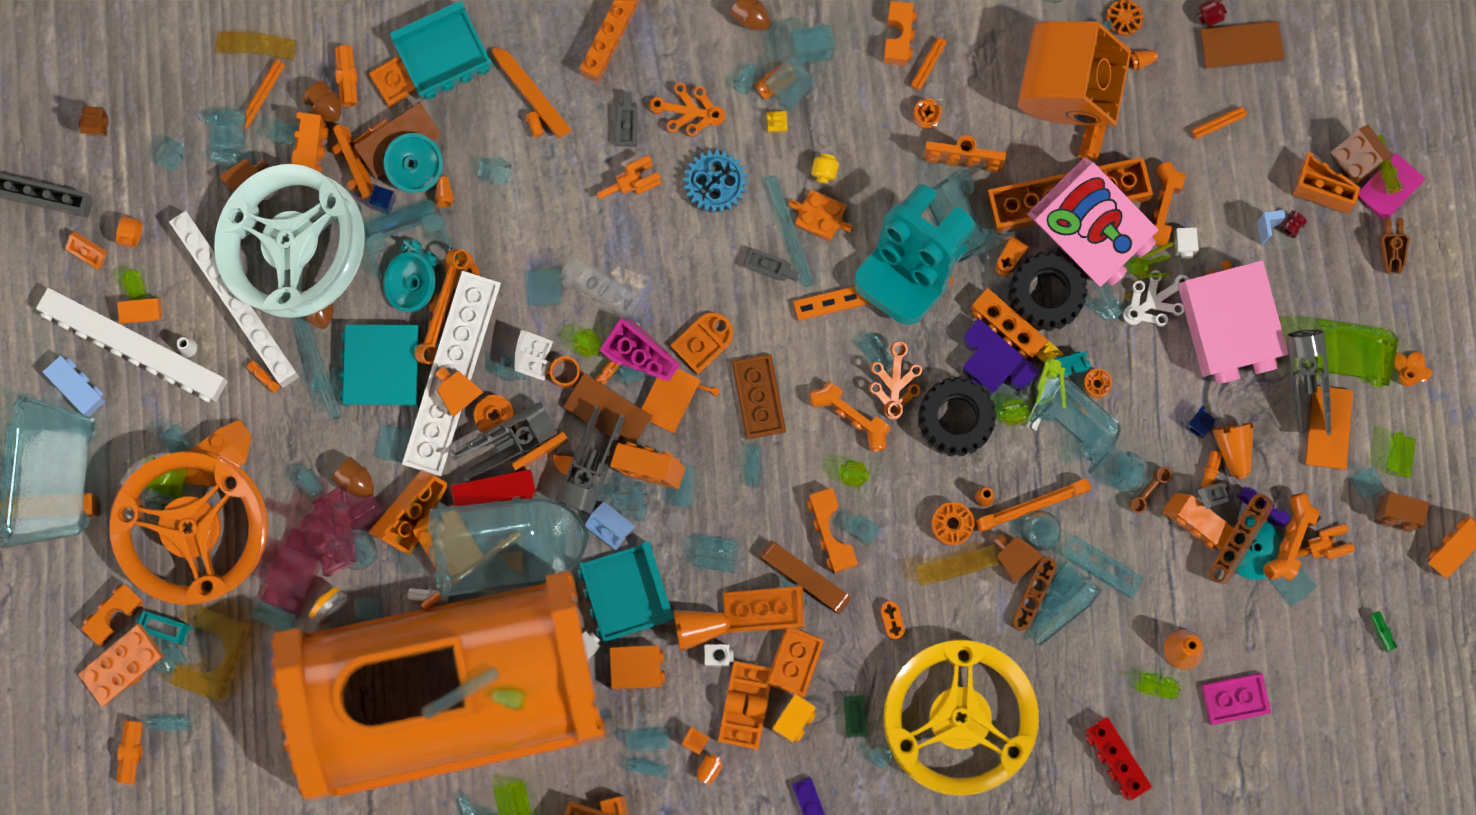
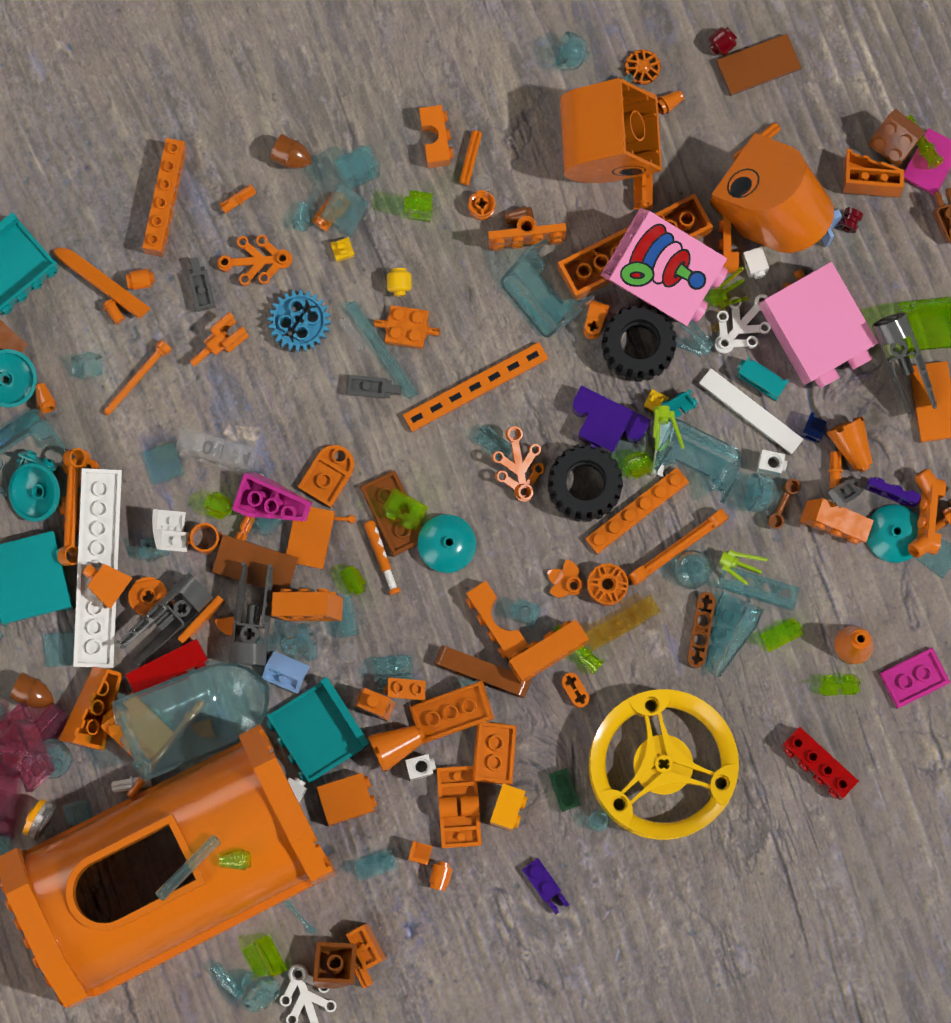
camera: 15 degrees left, 0 degrees up
(567, 787) = (311, 929): none -> clear light blue hinge
(569, 99) = (140, 279): none -> orange brick
(571, 174) = (161, 349): none -> orange piece
(647, 768) = (381, 891): clear light blue pin -> none
(687, 44) = (238, 198): none -> orange axle
(689, 580) = (374, 704): none -> orange torso
(701, 452) = (353, 580): none -> clear neon green brick
(723, 574) = (405, 689): none -> orange hinge
(735, 436) = (377, 545): none -> orange piece
(753, 465) = (405, 579): clear light blue pin -> none
(768, 385) = (400, 500): none -> clear neon green brick
(789, 443) = (433, 545): none -> teal dish
(853, 473) = (502, 562): clear neon green head -> none
(864, 98) = (419, 206): none -> clear neon green brick
(876, 429) = (512, 515): orange plate -> none
(876, 574) = (548, 651): none -> orange brick
(909, 506) = (563, 578): none -> orange plate
(910, 587) = (586, 656): none -> clear neon green pin
(913, 258) = (505, 345): teal piece -> none
(956, 132) = (513, 216): none -> dark orange cone
(983, 501) = (627, 554): orange cone -> none
(989, 300) = (605, 374): orange brick -> none
(1001, 458) = (637, 510): none -> orange plate
(1016, 557) = (675, 600): dark orange torso -> none
(1081, 532) = (731, 560): none -> lime plant
(1103, 378) = (711, 410): orange wheel -> none
(1113, 620) = (781, 634): none -> clear neon green hinge
(1140, 447) = (763, 466): none -> white brick
(1142, 389) = (751, 411): none -> white tile
(1161, 359) = (761, 378): none -> teal window
(1222, 181) = (775, 197): none -> orange brick
(1240, 549) = (876, 518): dark orange beam -> none

